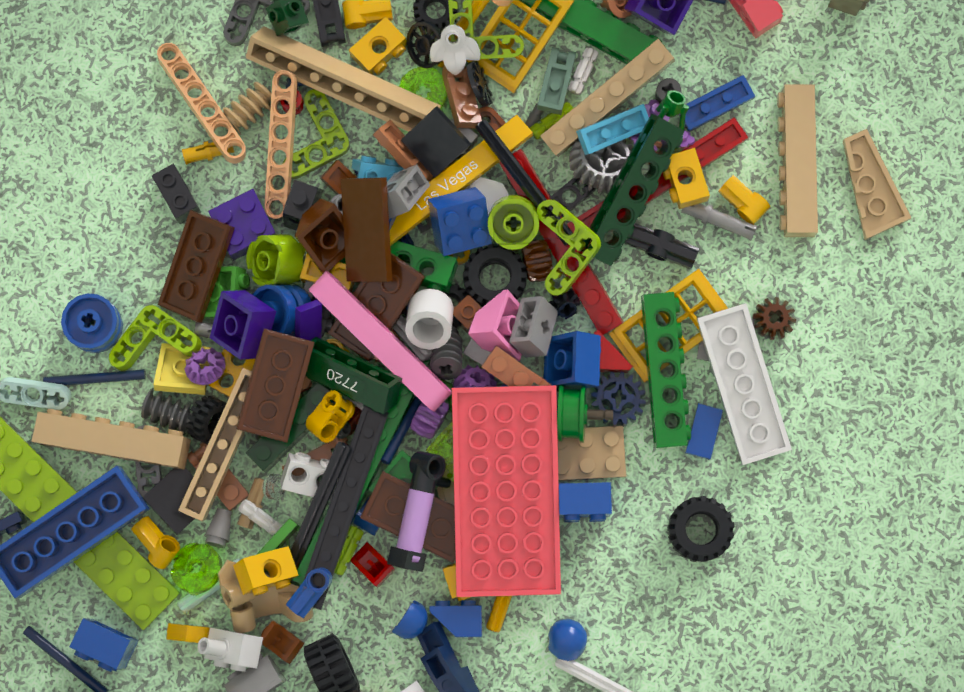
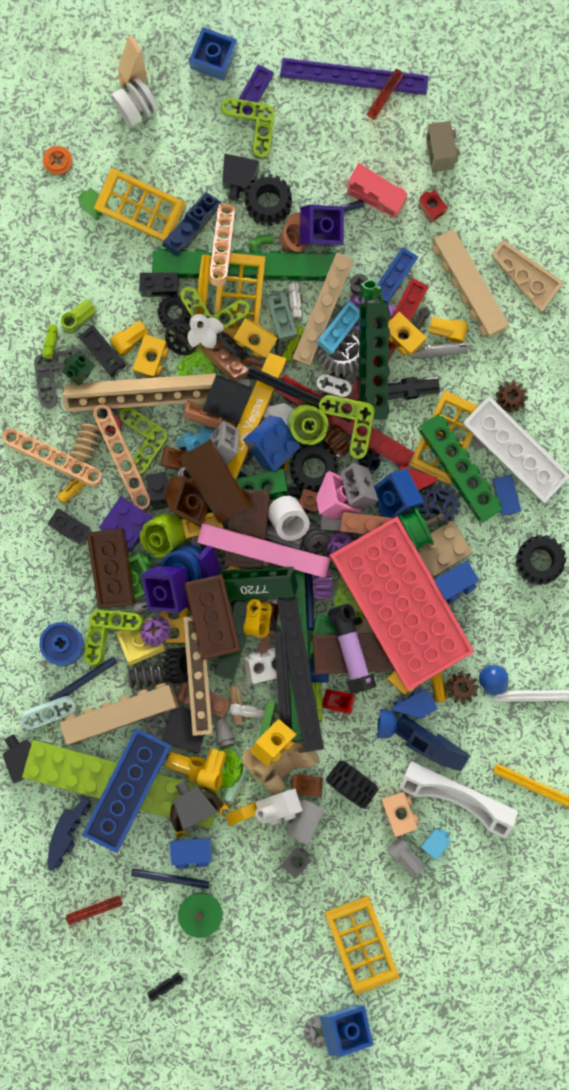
camera: 30 degrees left, 0 degrees up
(135, 594) = (193, 807): none -> dark grey torso
(175, 568) = (211, 775): none -> yellow piece
(308, 593) = (310, 742): blue piece -> none
(524, 94) = (249, 327): none -> yellow brick
(533, 630) = (468, 685): none -> reddish brown gear
(567, 199) = (336, 382): none -> white beam
(716, 171) = (420, 319): none -> dark grey axle
(803, 55) = (432, 213): none -> red brick

